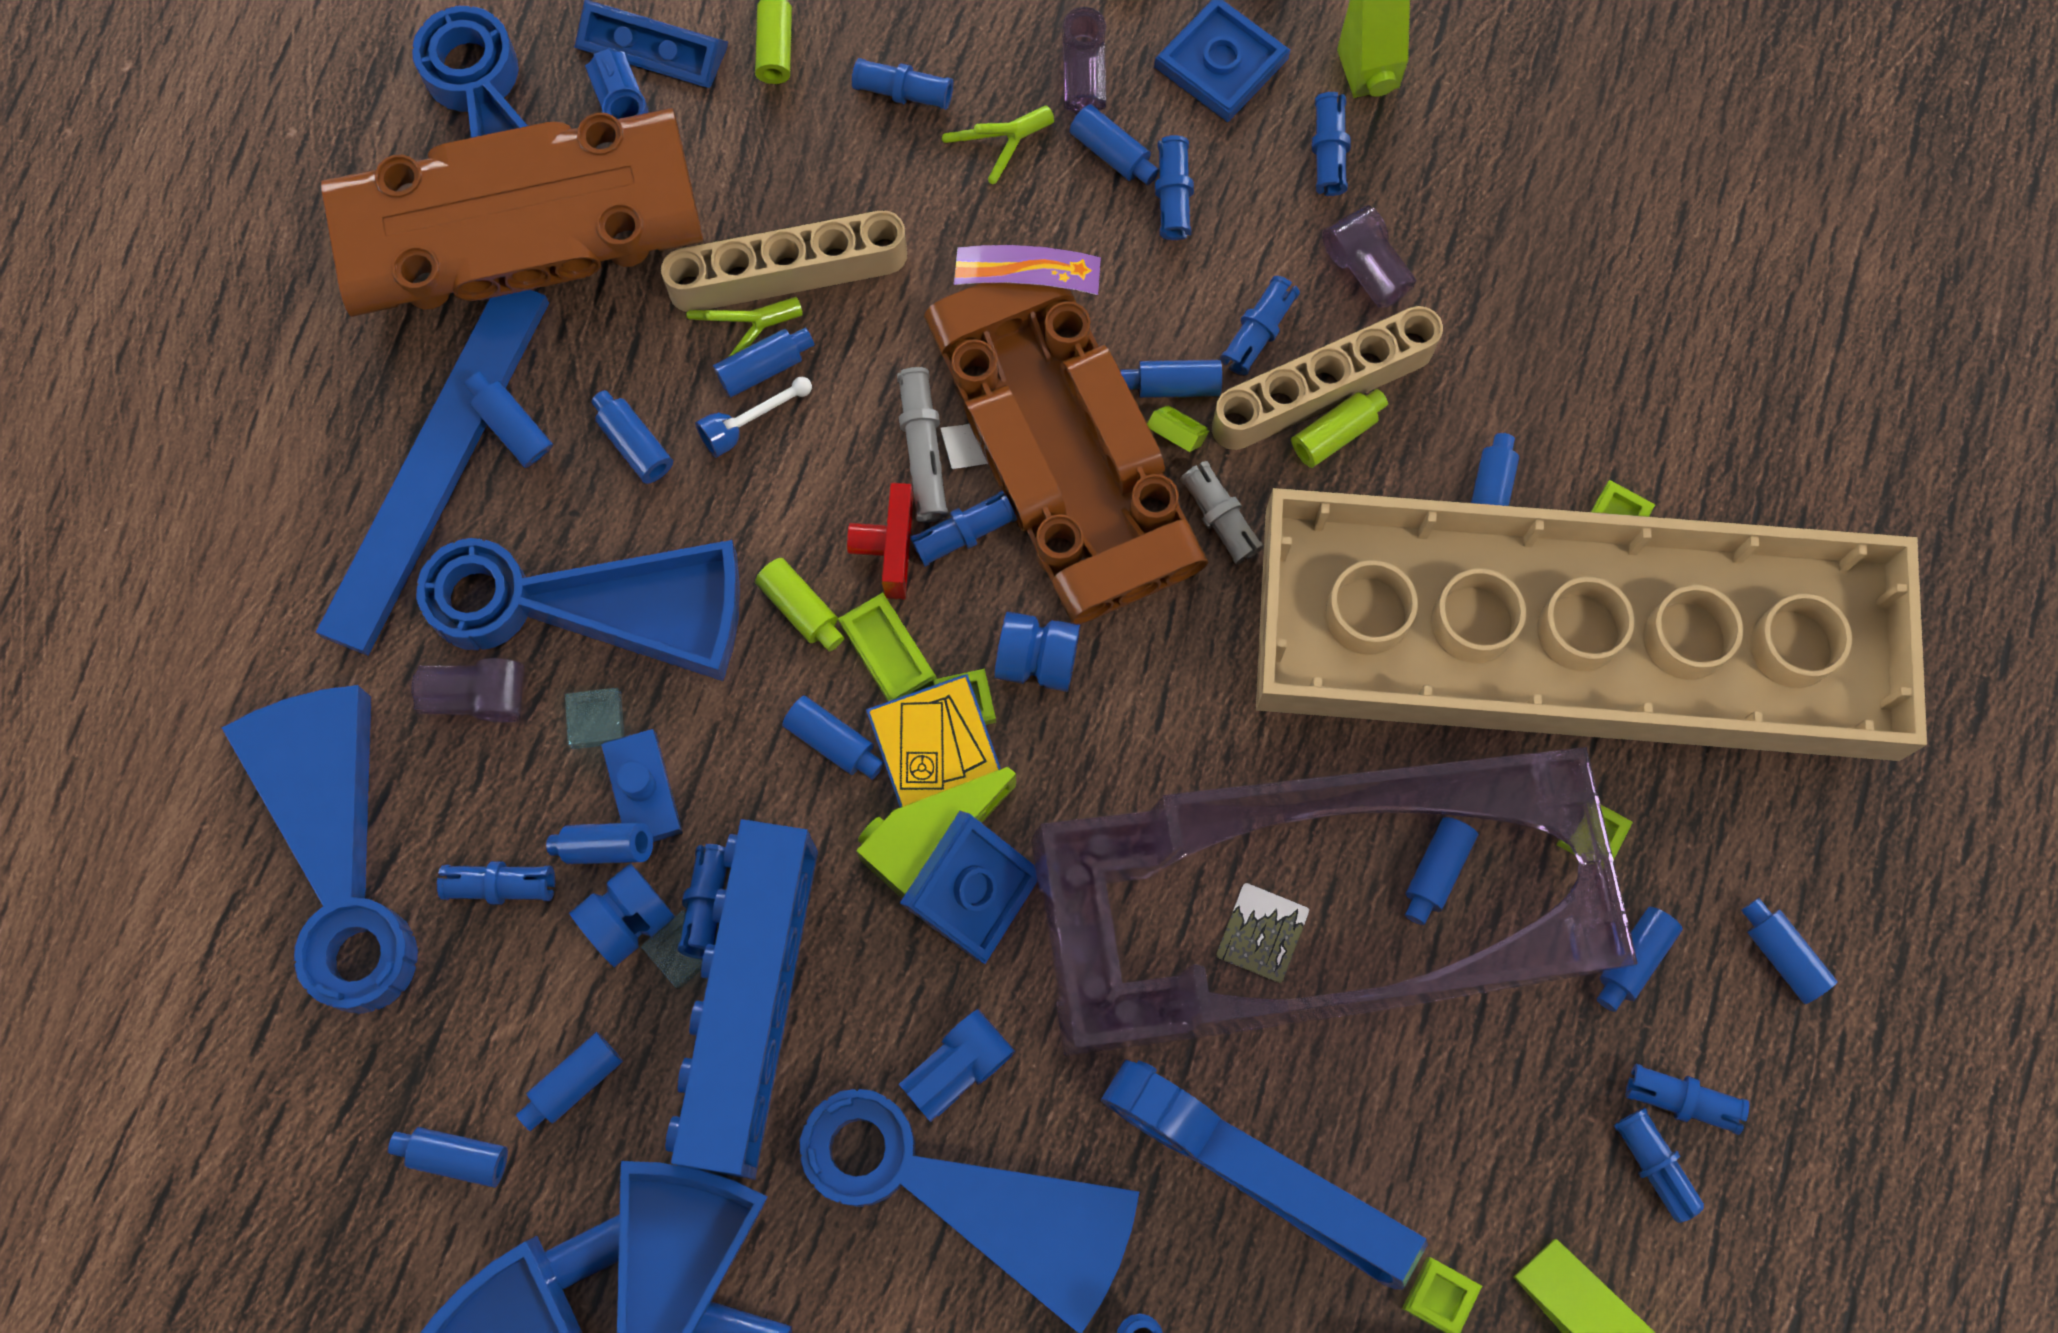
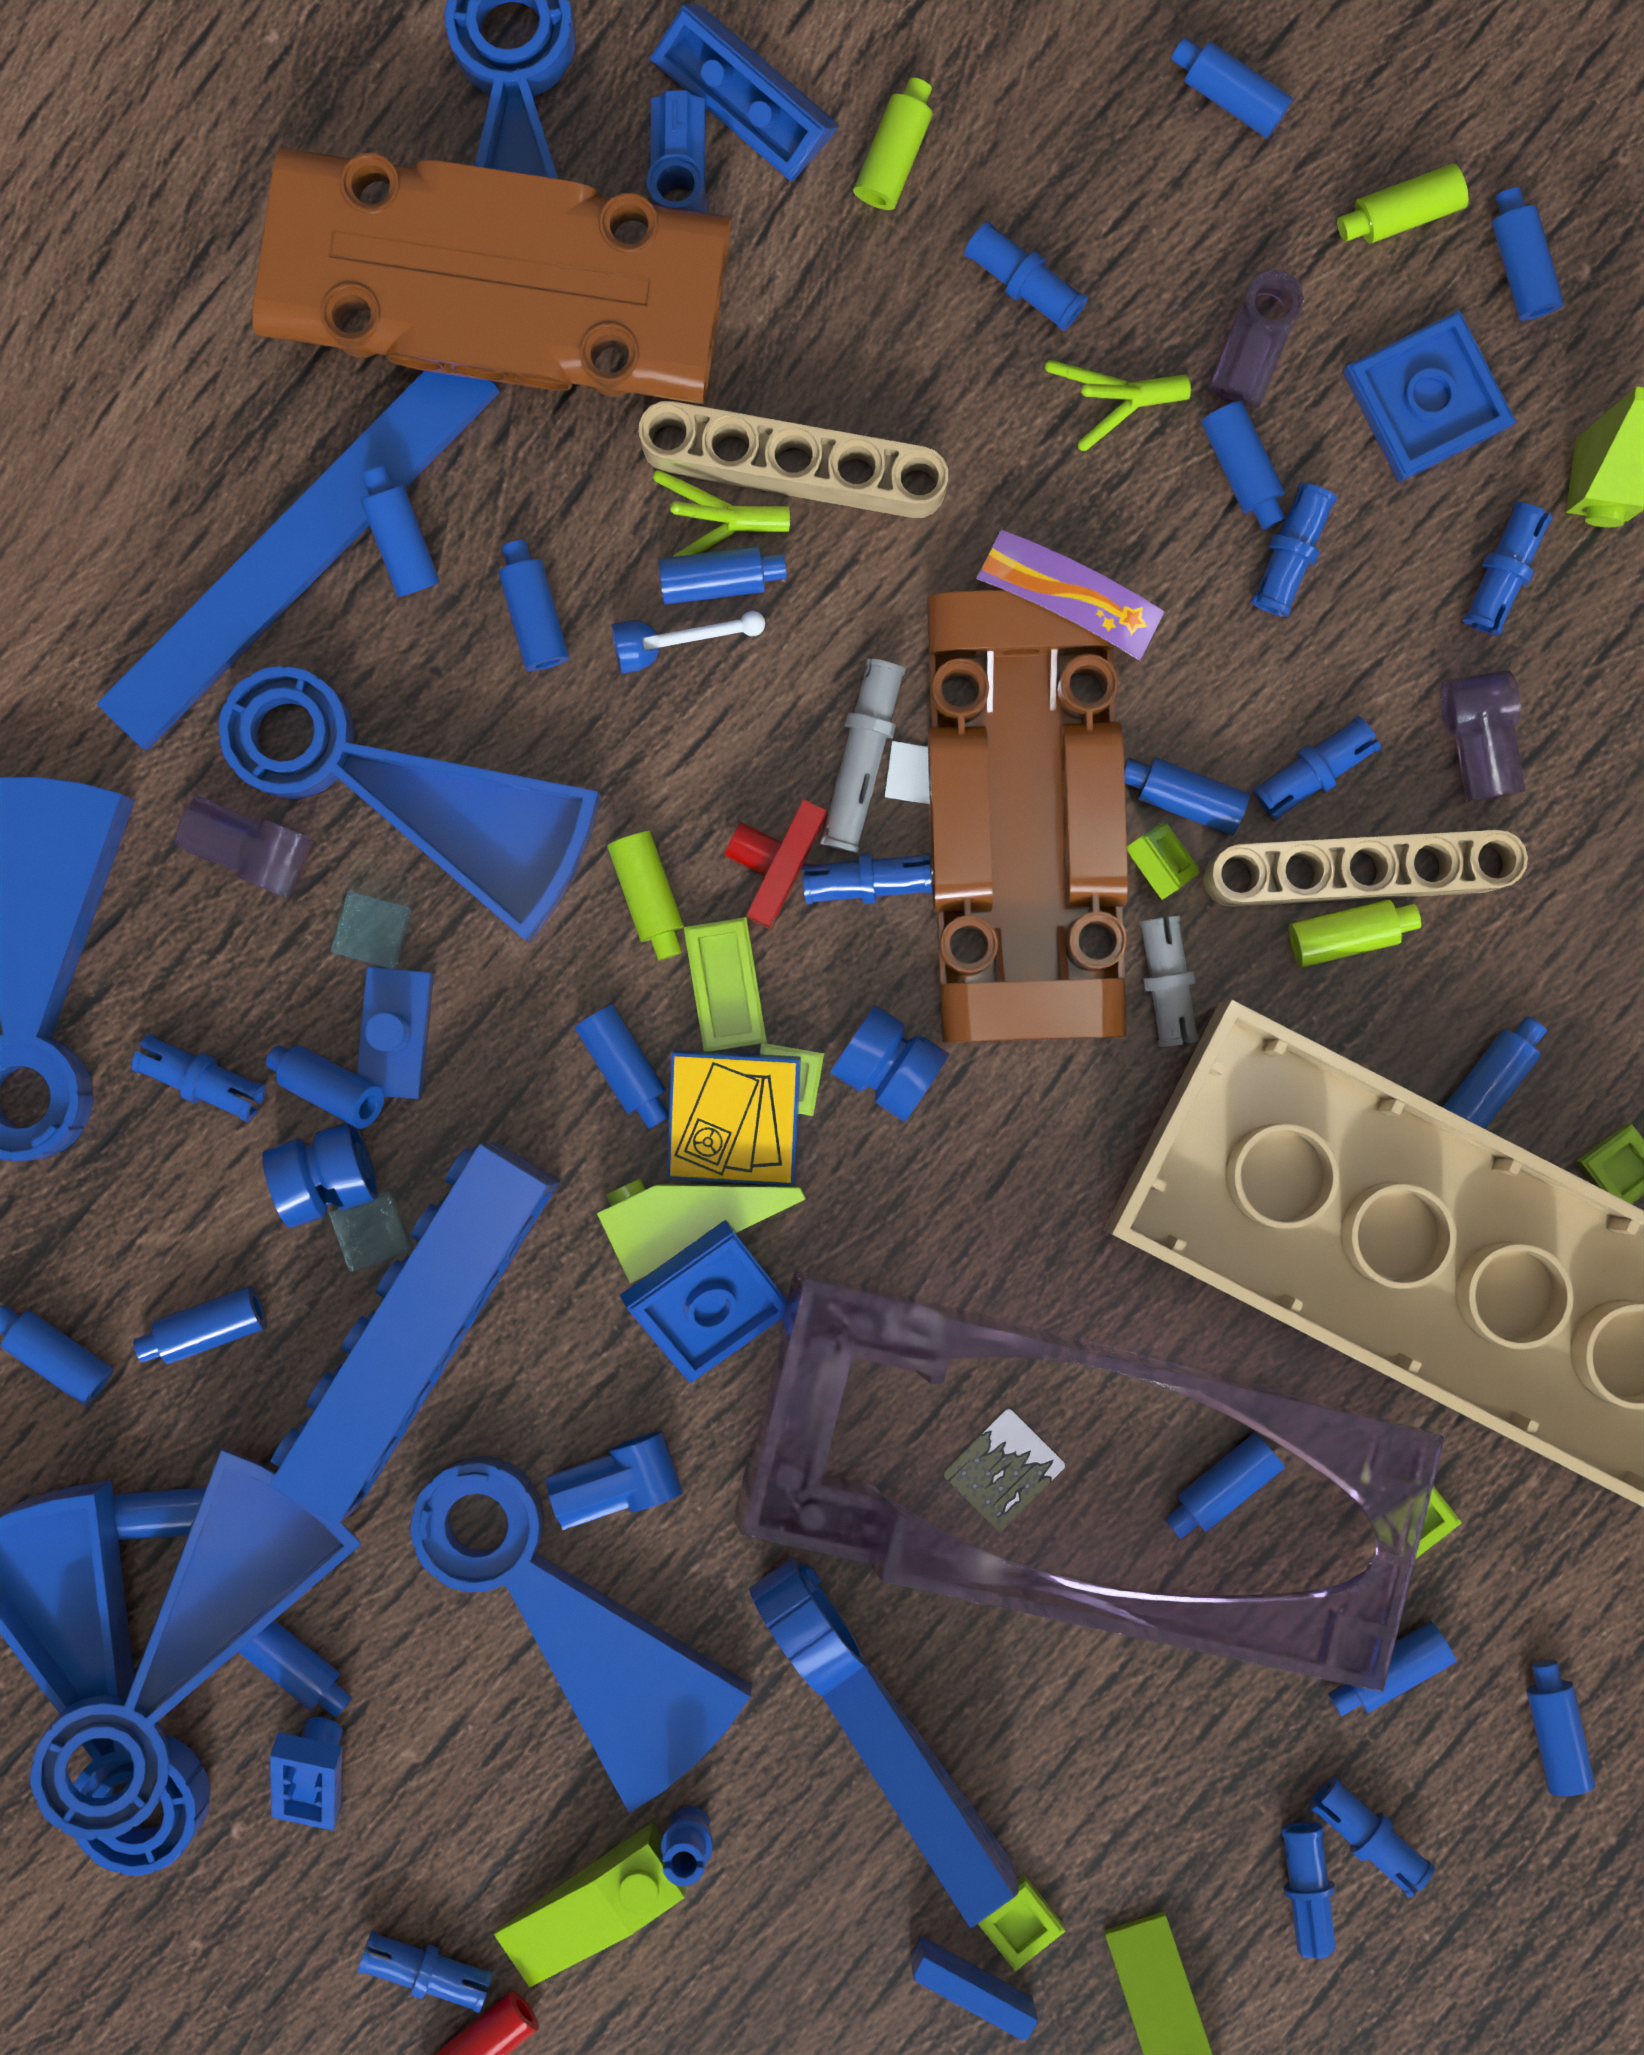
camera: 20 degrees right, 15 degrees up
(699, 900) = (414, 1193): blue pin -> none

